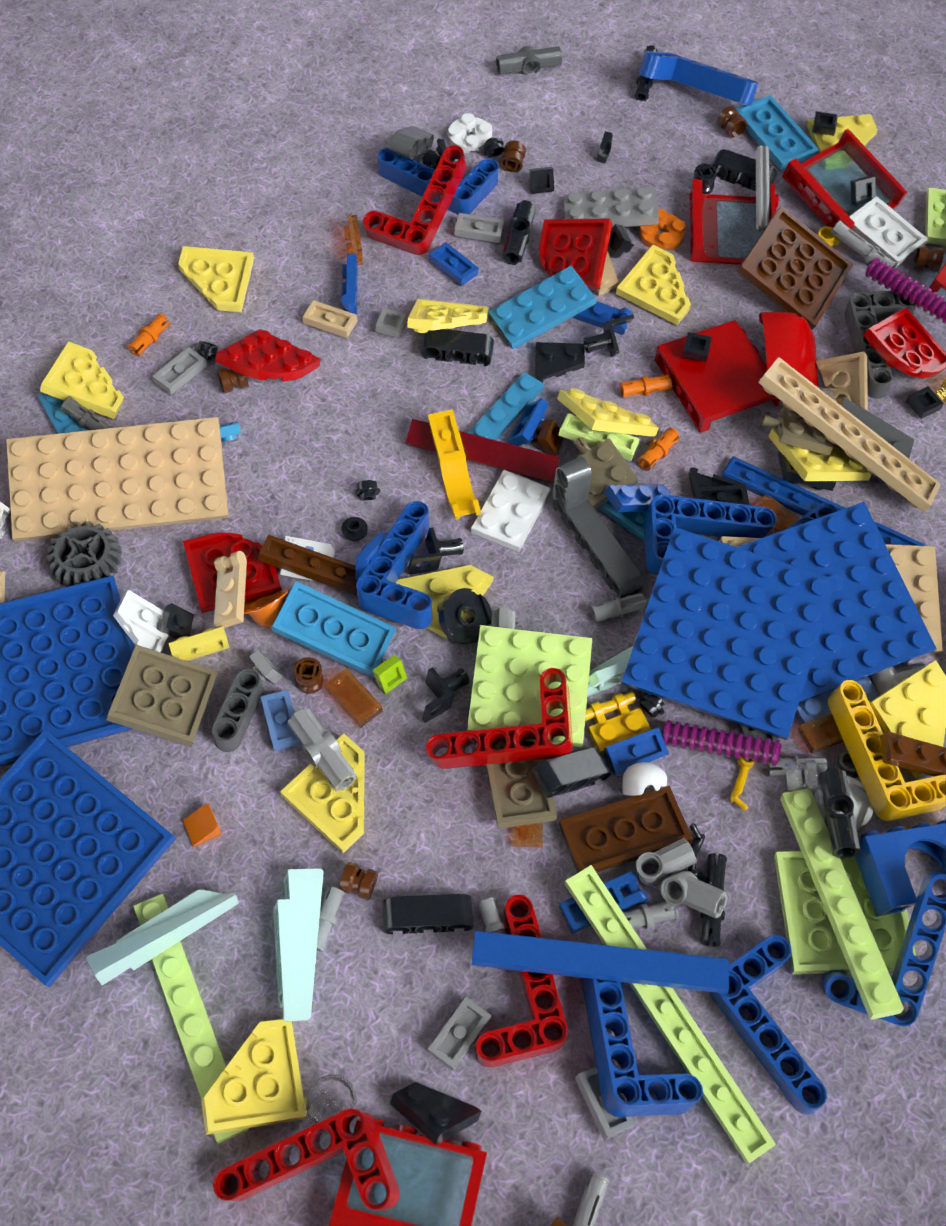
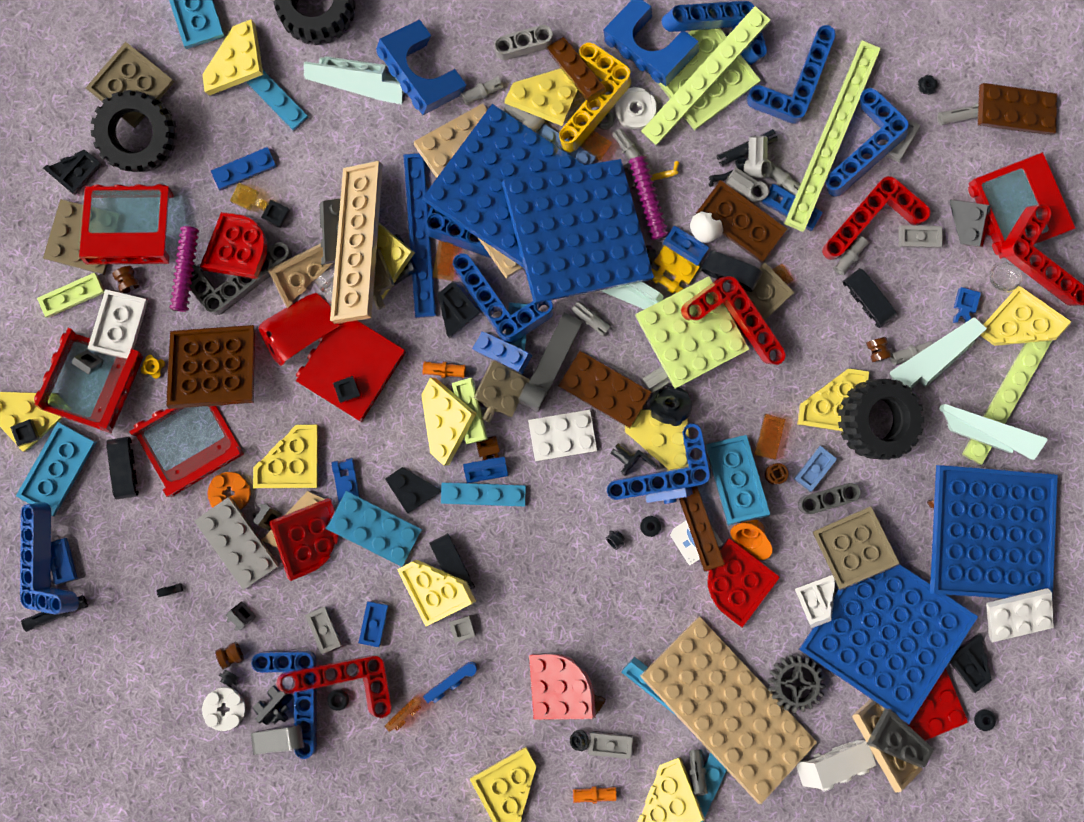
camera: 125 degrees left, 25 degrees up
(176, 621) = (799, 584): black plate -> none
(199, 645) = (811, 562): light yellow plate -> none
(202, 825) = (909, 464): orange slope -> none
(230, 589) = (759, 564): tan plate -> none
(252, 787) = (905, 425): none -> black tyre
(265, 667) = (789, 504): light grey plate -> none
(322, 749) = (822, 425): light grey piece -> none
(330, 319) = (489, 675): tan plate -> none
(335, 1030) = (966, 303): none -> blue plate
(390, 674) = (740, 426): lime plate -> none
(407, 206) = (331, 700): none -> black plate
(443, 690) = (725, 386): black bracket -> none
(453, 464) = (559, 493): yellow piece -> none
(491, 453) = (531, 485): dark red tile -> none
(519, 232) = (297, 601): black piece -> none
(528, 60) = (104, 719): dark grey piece -> none
(529, 571) = (605, 389): none -> reddish brown plate
(600, 962) = (839, 181): blue tile -> none
(607, 338) = (374, 462): black bracket -> none
(645, 386) = (393, 412): orange pin -> none
(652, 1205) = (927, 89): none -> black plate
(688, 98) = (62, 562): none -> blue plate
(707, 174) = (156, 492): black wheel -> none
(731, 121) = (69, 509): reddish brown wheel -> none
(762, 188) = (139, 438): light grey axle -> none
(794, 775) = (640, 137): clear wheel -> none
(840, 826) = (664, 93): black piece -> none
(859, 244) = (149, 330): light grey pin -> none

